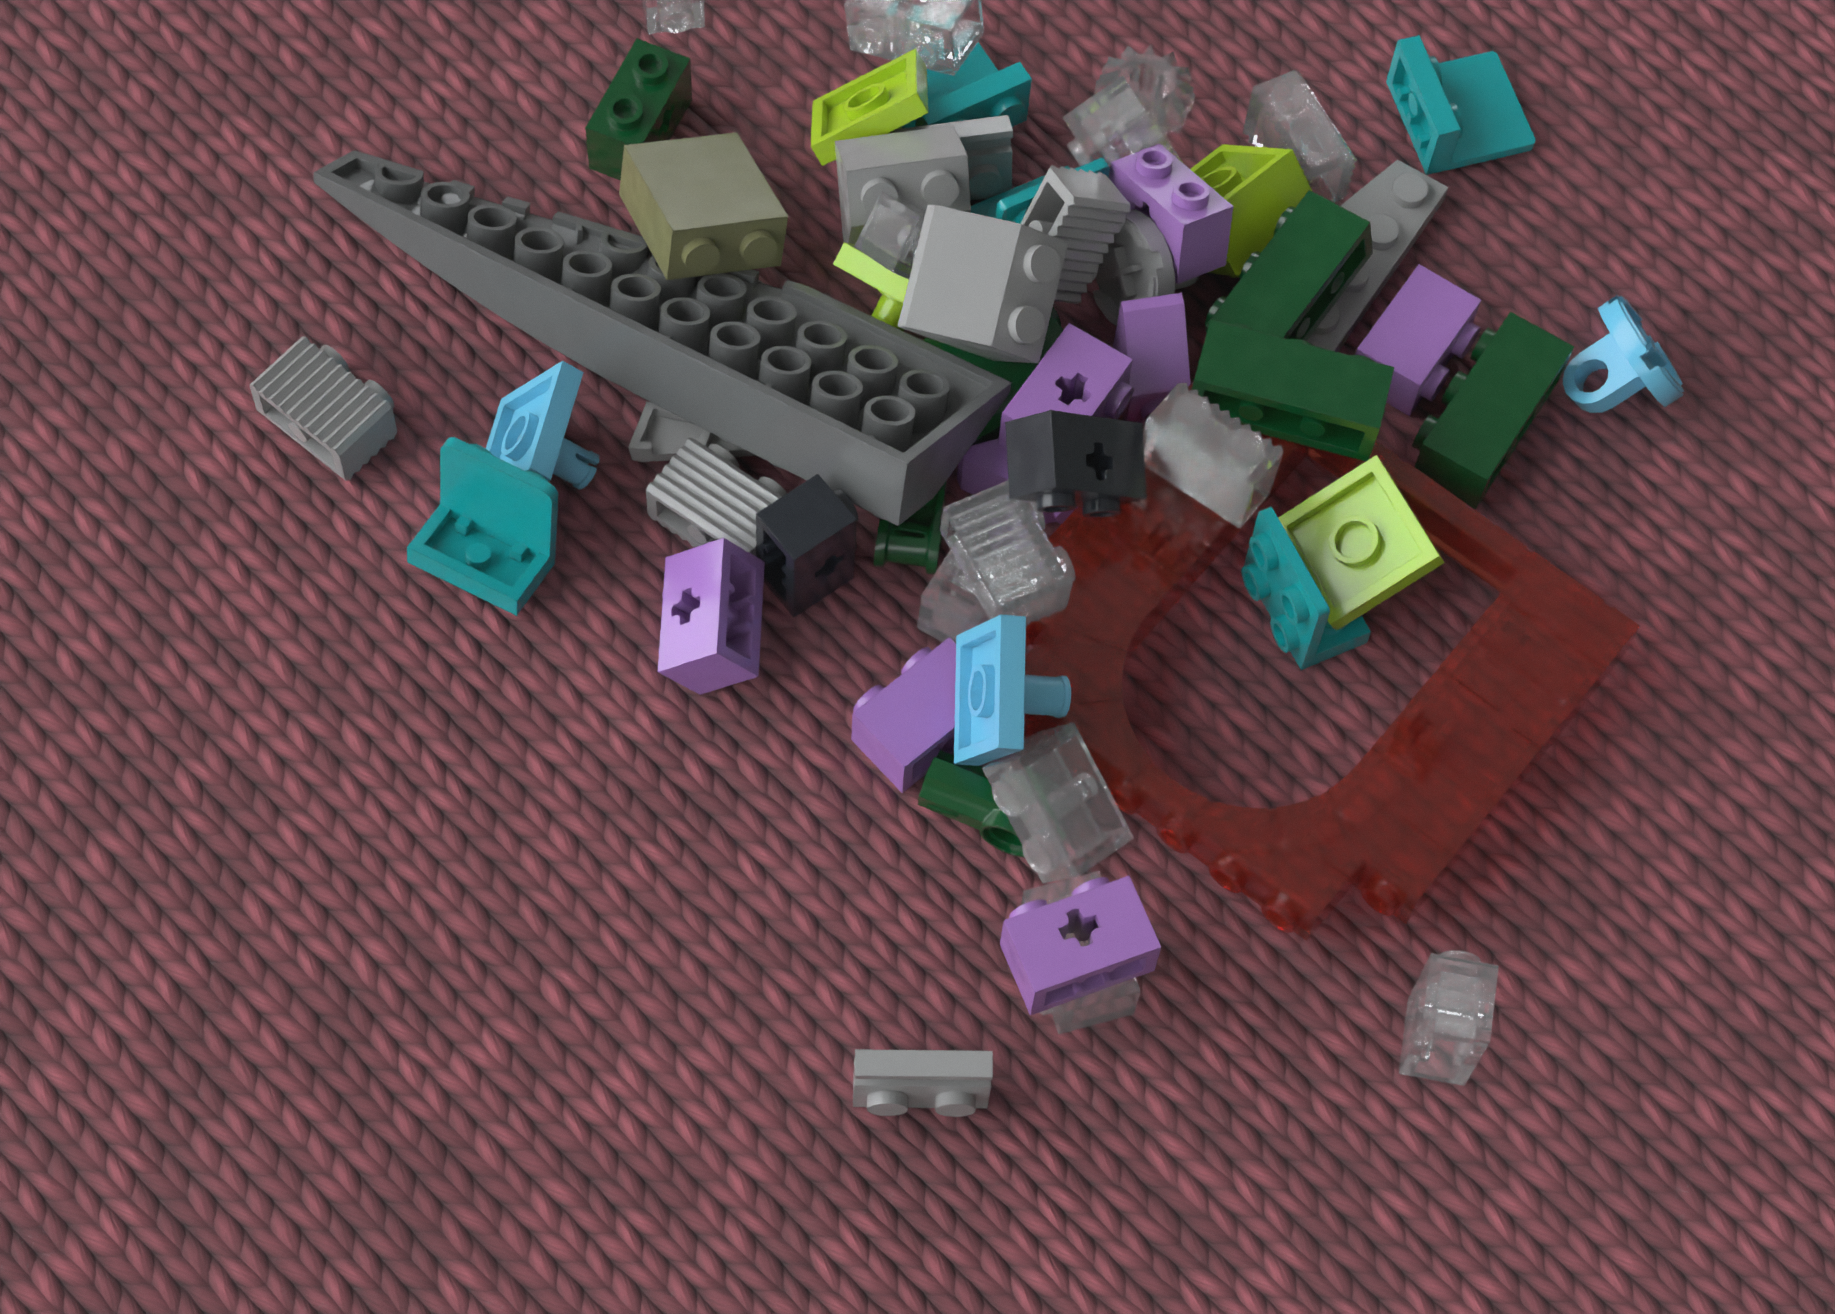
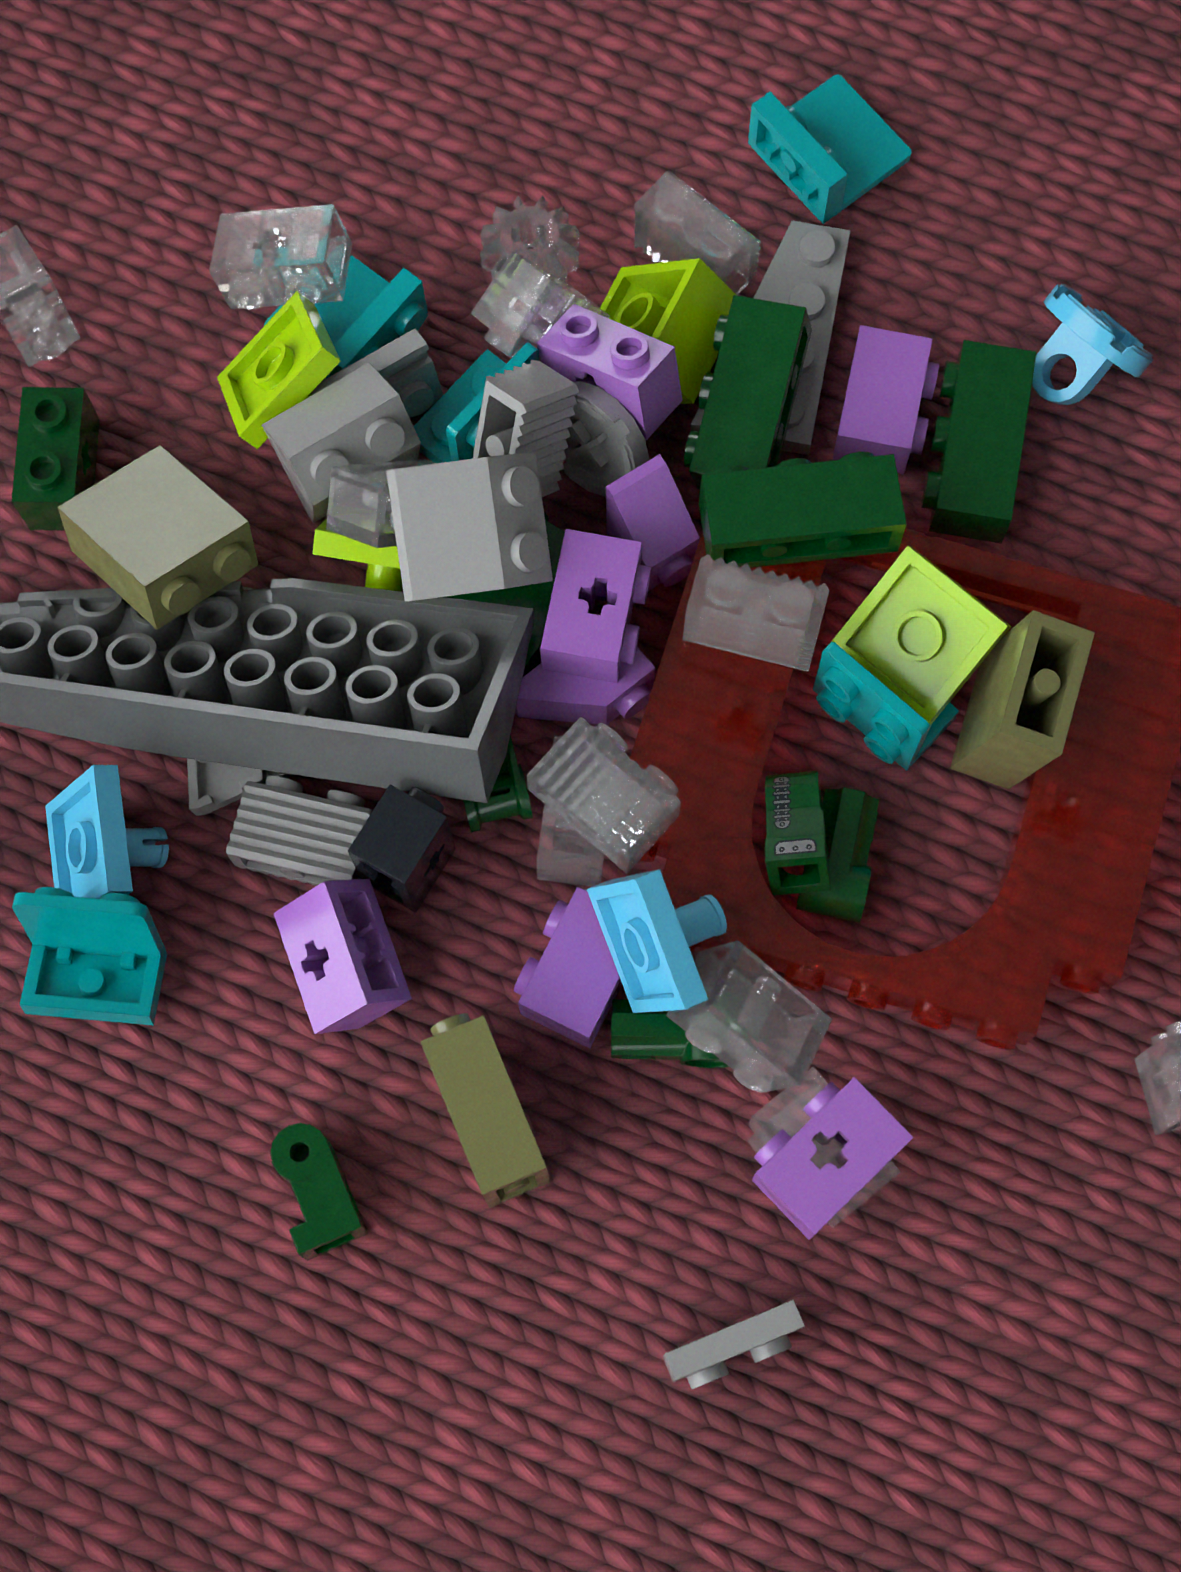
camera: 15 degrees left, 10 degrees up
(605, 796) = (313, 1170): none -> dark green leg
(783, 791) = (484, 1109): none -> olive brick
(1075, 462) = (636, 679): black brick -> none
(1169, 659) = (795, 833): none -> dark green leg
(1197, 723) = (850, 831): none -> dark green piece
(1427, 630) = (1023, 701): none -> olive brick

